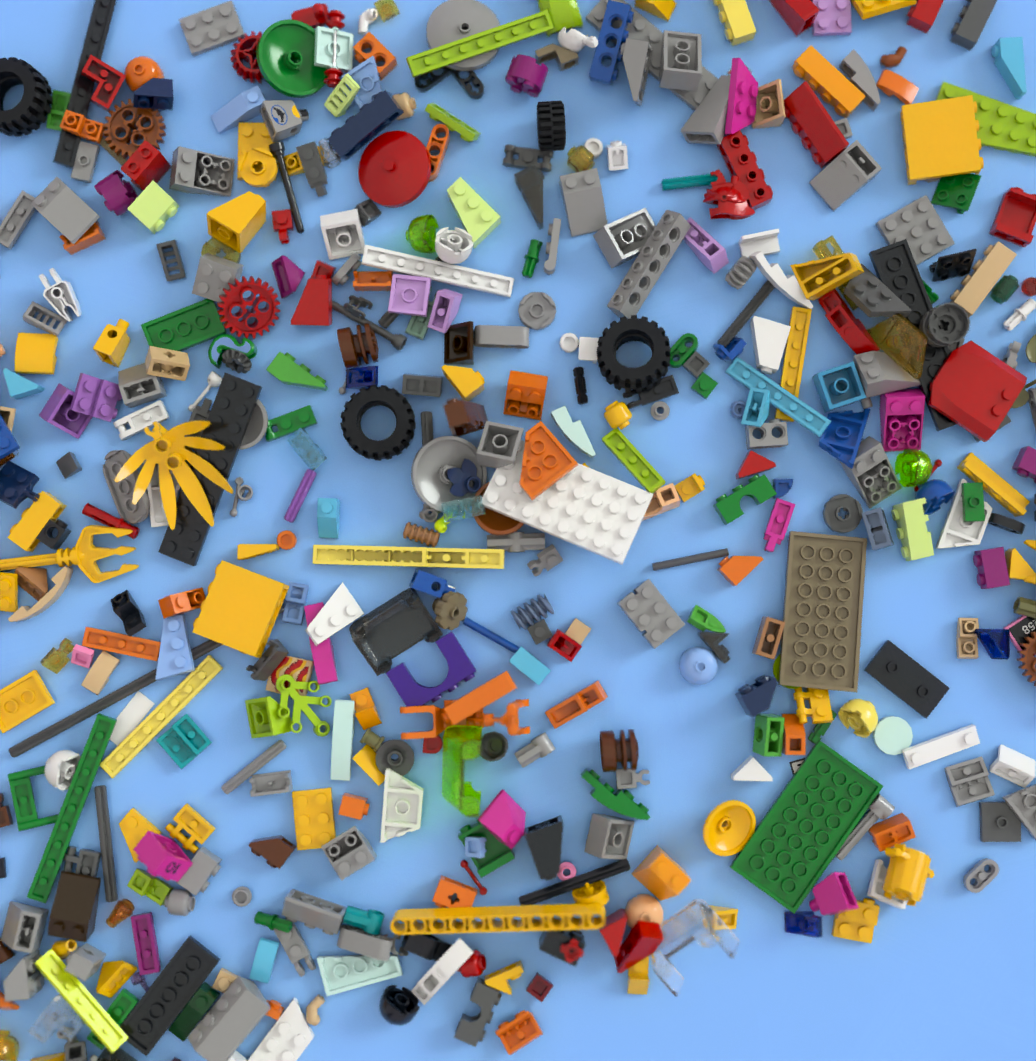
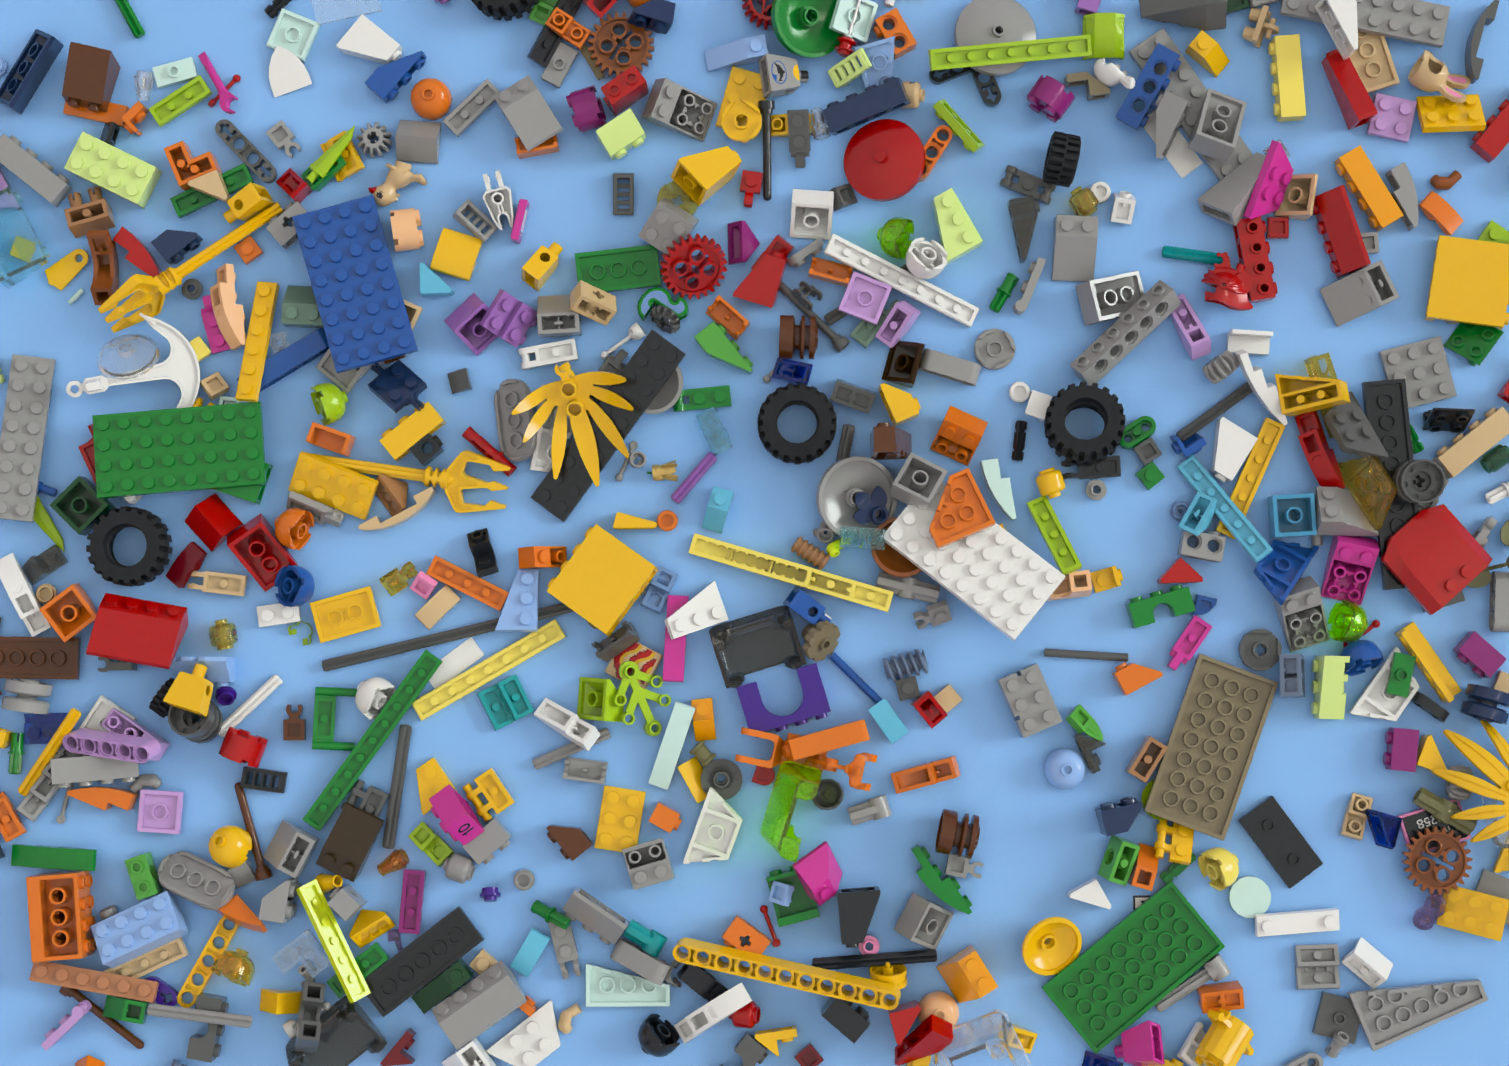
camera: 20 degrees right, 0 degrees up
(84, 309) = (519, 221): none -> dark pink tile
(214, 918) = (490, 894): none -> dark purple plate
(243, 746) = (567, 724): none -> white slope
(270, 497) = (664, 471): none -> pearl gold piece
(292, 344) = (728, 317): none -> orange hinge
(570, 957) = (860, 1029): red plate -> none
(654, 97) = (1178, 155): none -> white sticker
(757, 138) = (1277, 227): none -> red tile
(1007, 843) = (1339, 1041): none -> light grey pin

